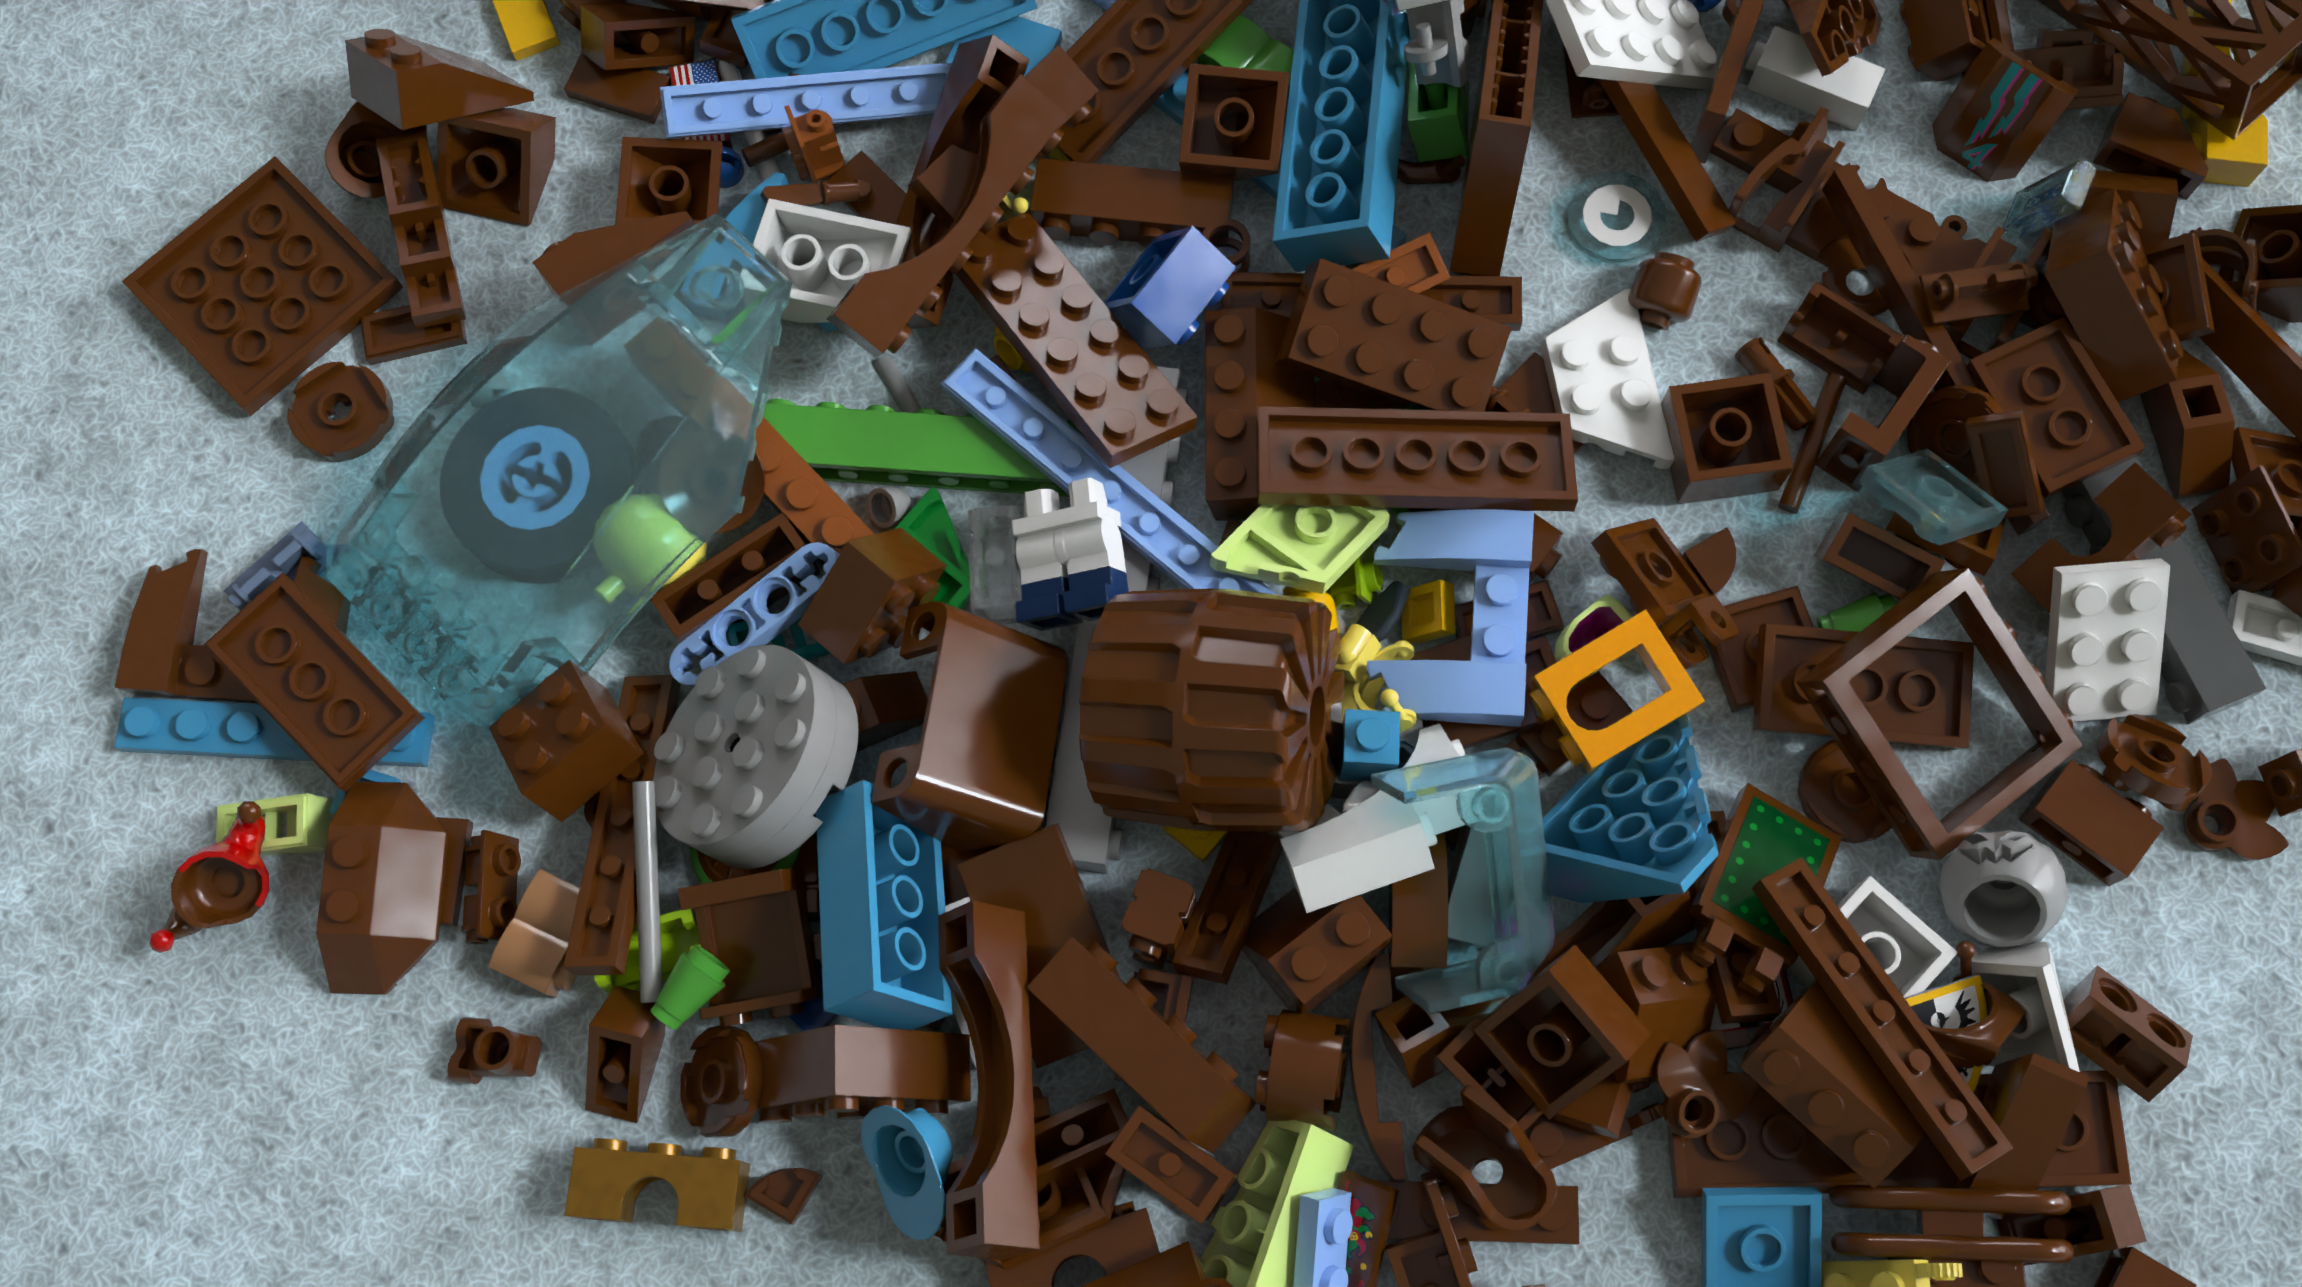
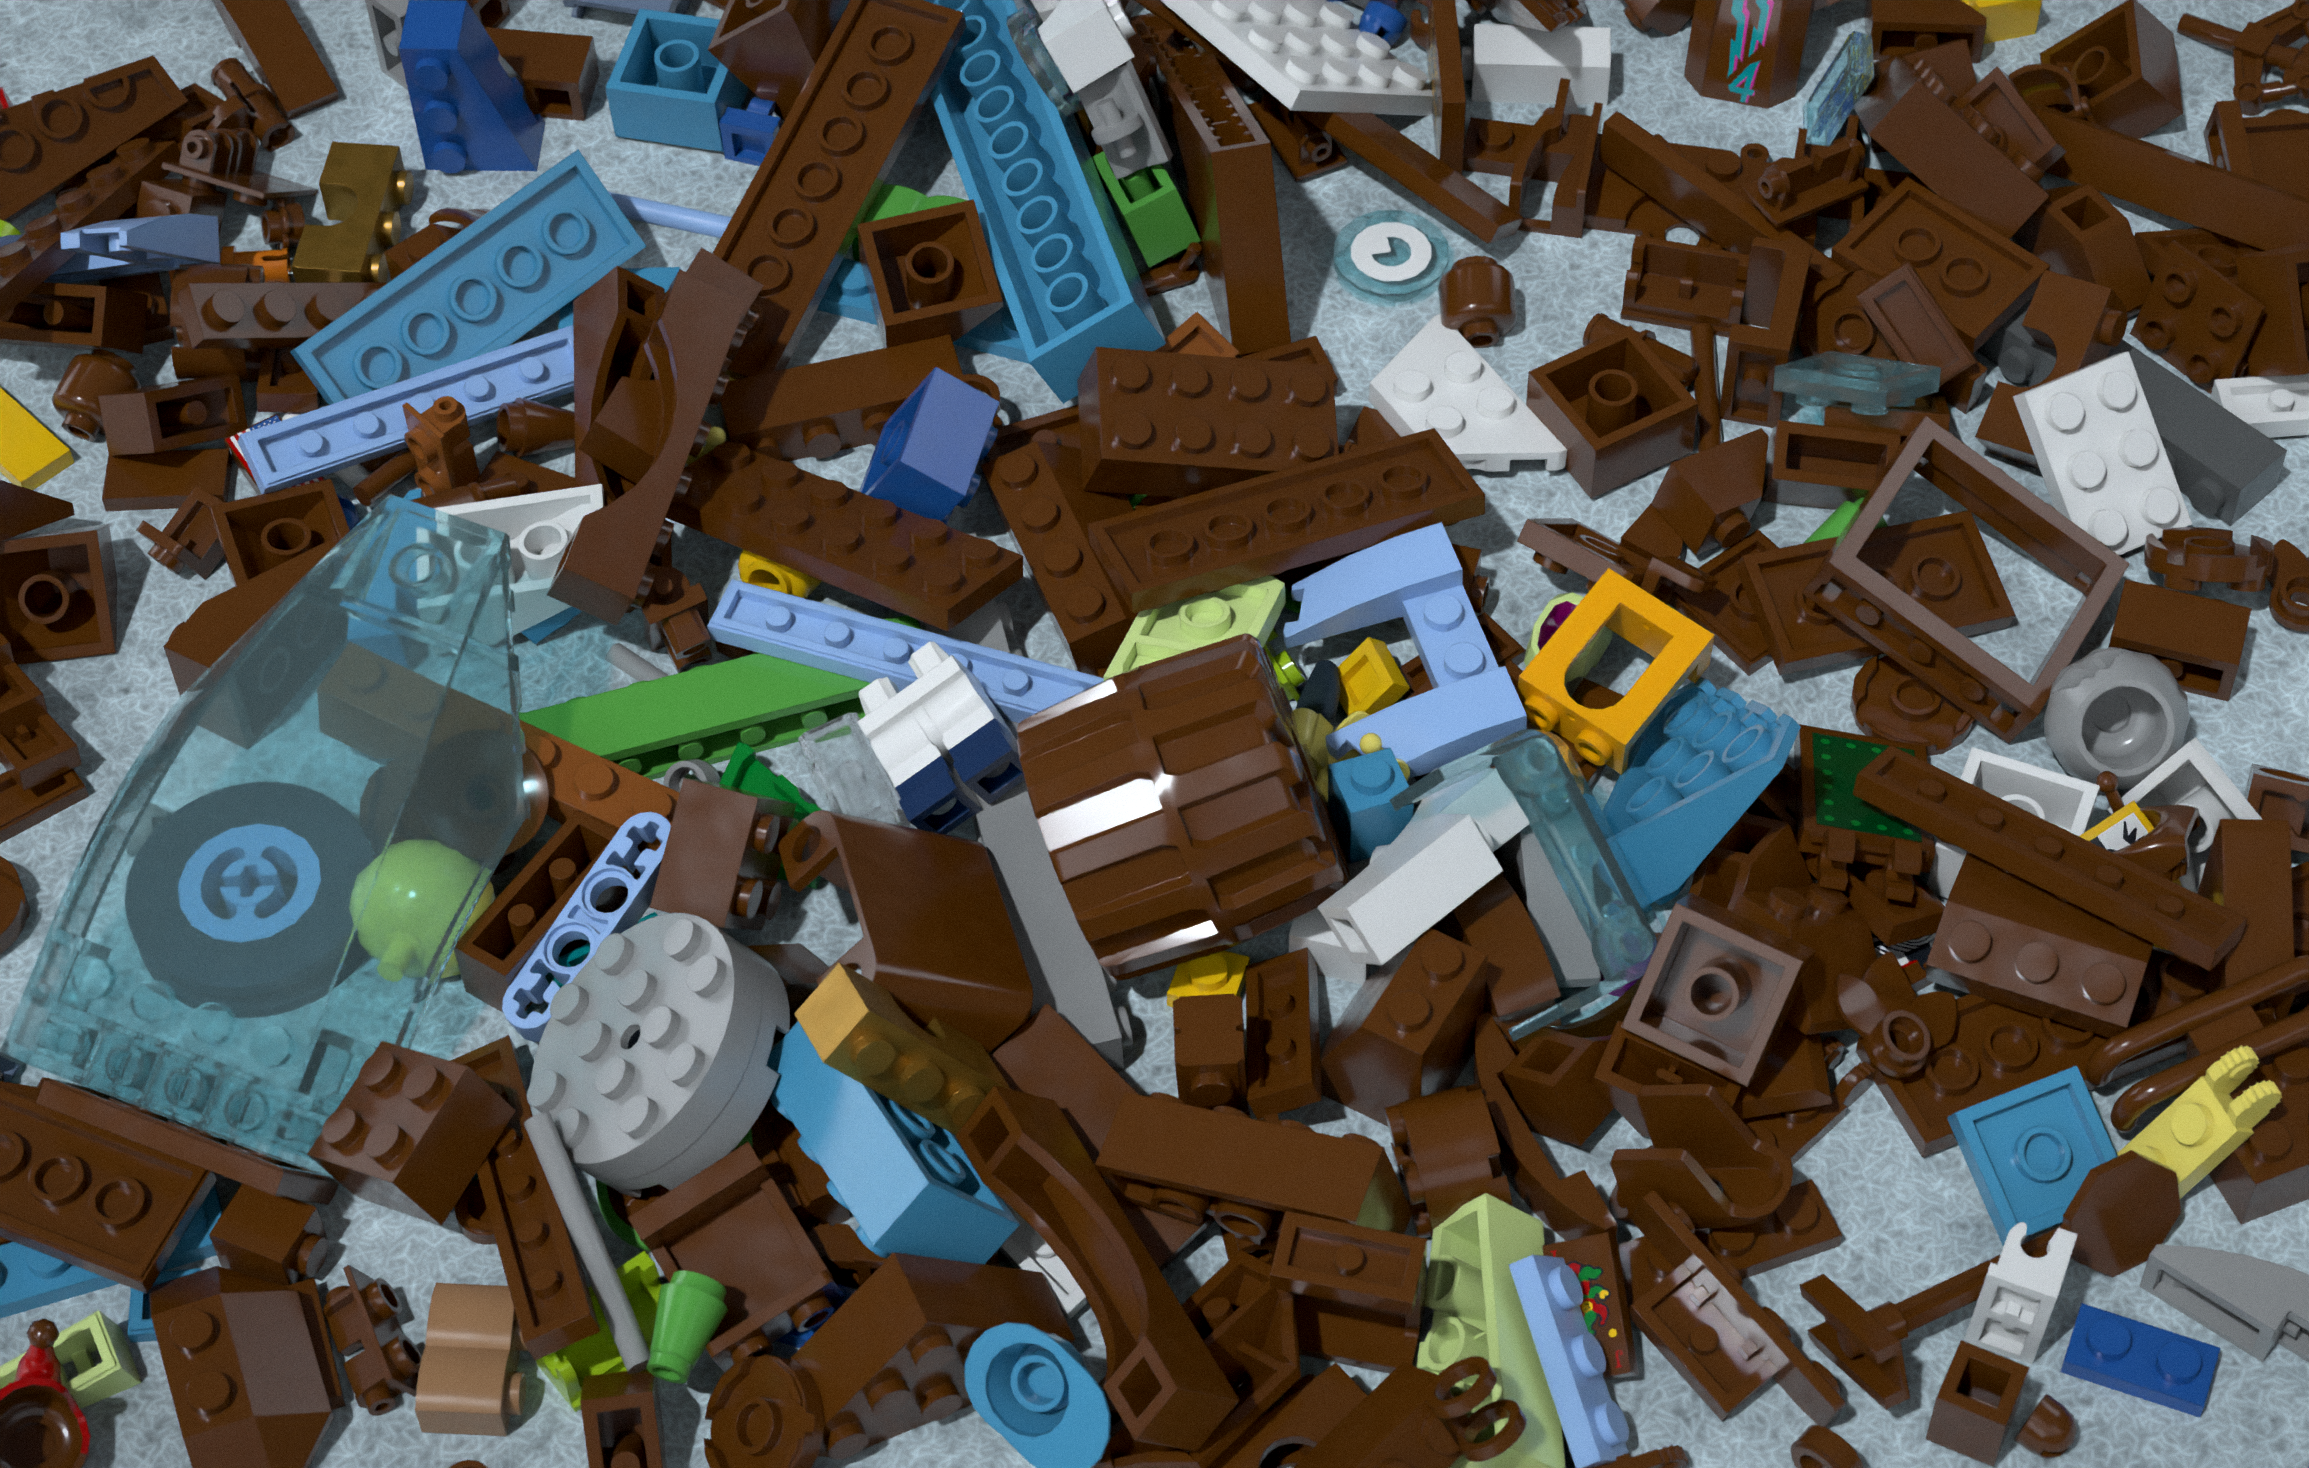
camera: 25 degrees left, 20 degrees down
(402, 690) = (187, 1143): none -> reddish brown tile
(448, 776) = (270, 1237): none -> reddish brown brick
(602, 152) = (188, 537): none -> reddish brown bracket
(883, 840) = (875, 1043): none -> pearl gold arch
(893, 142) = (534, 428): none -> reddish brown cone
(927, 360) = (677, 618): none -> reddish brown hips
(1777, 546) = (1715, 492): none -> reddish brown slope

